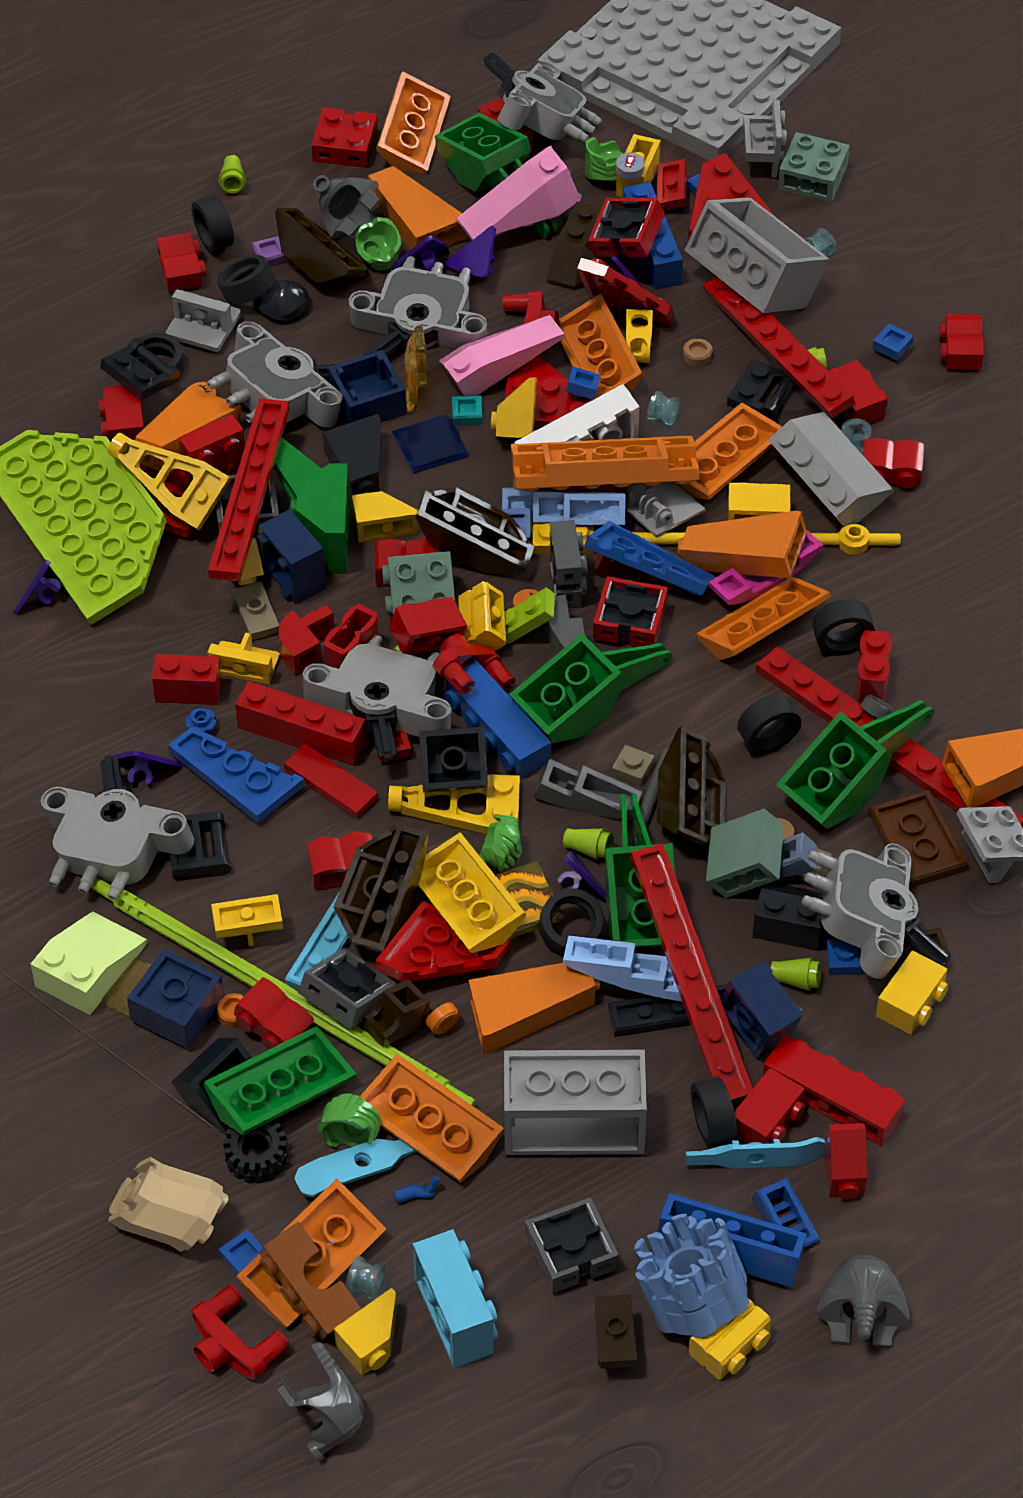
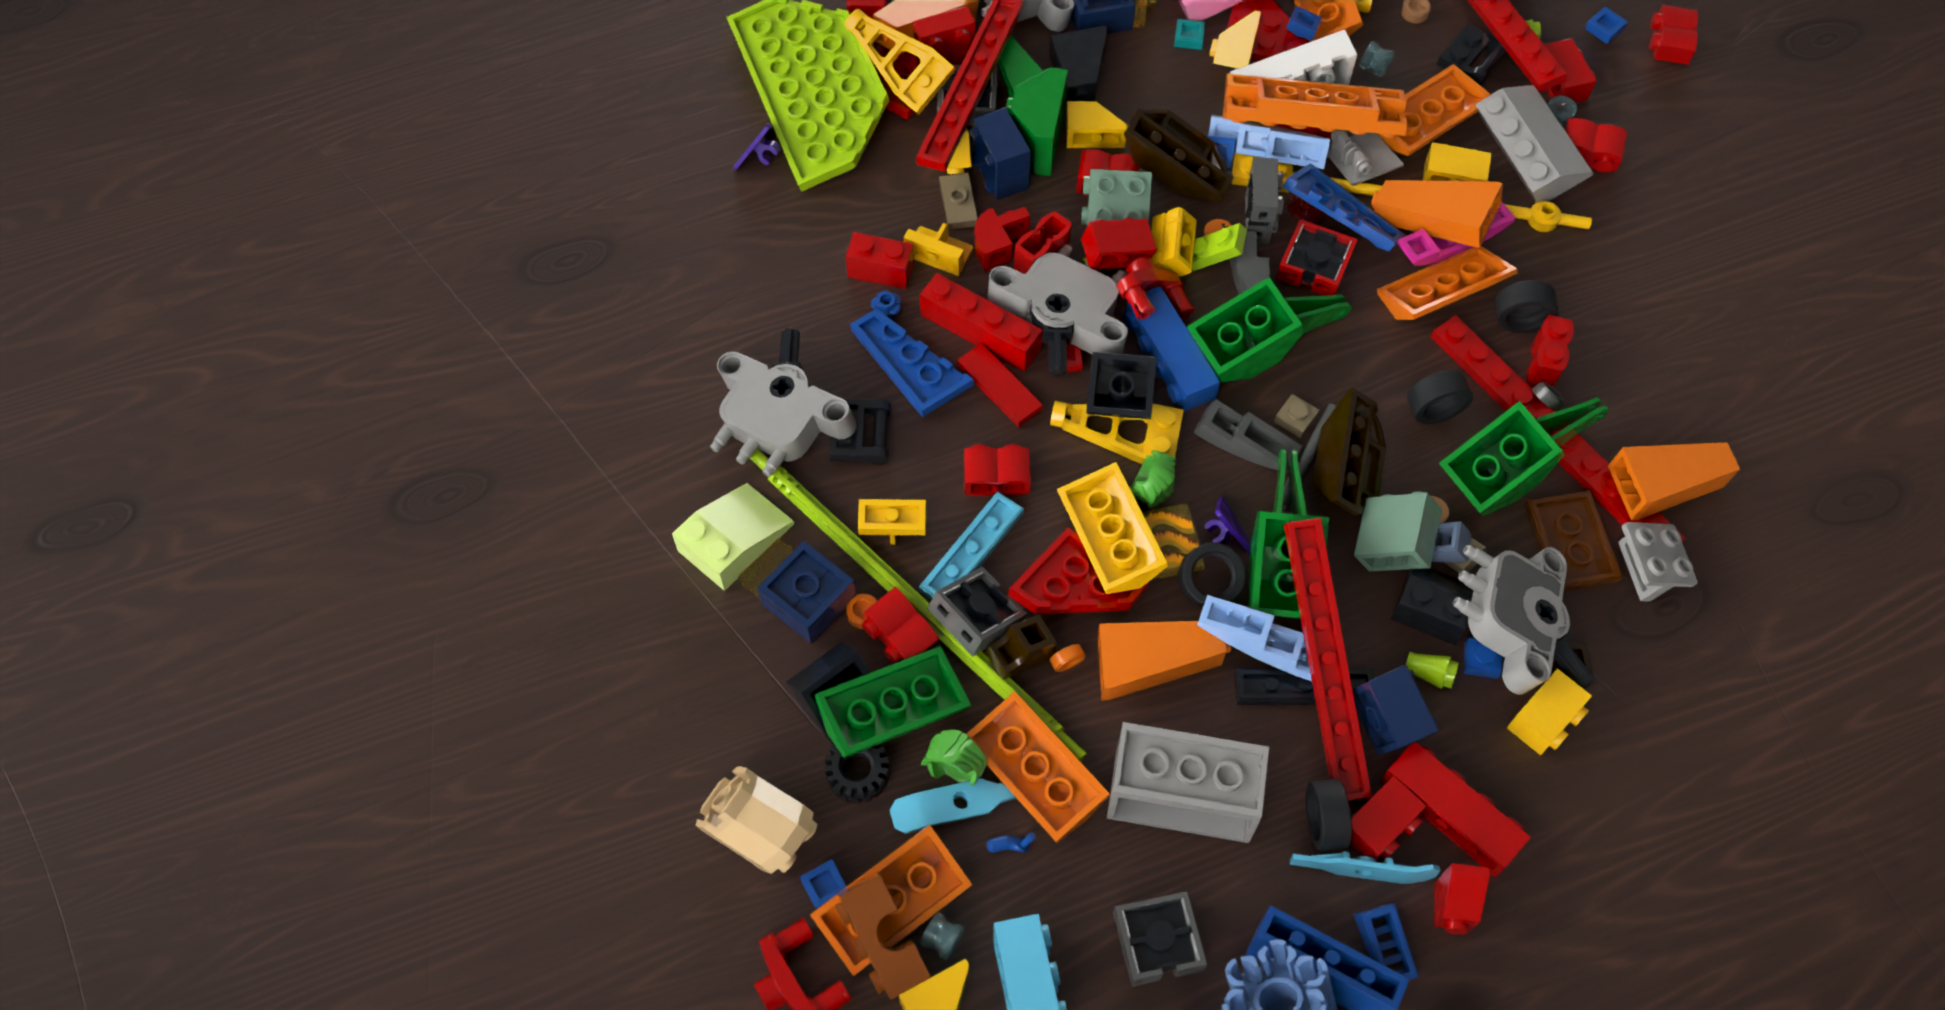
camera: 10 degrees right, 10 degrees up
(142, 764) = (823, 340): dark purple piece -> none
(381, 886) = (1028, 509): dark brown wedge -> none
(430, 443) = (1150, 61): clear blue piece -> none
(589, 841) = (1243, 491): lime cone -> none

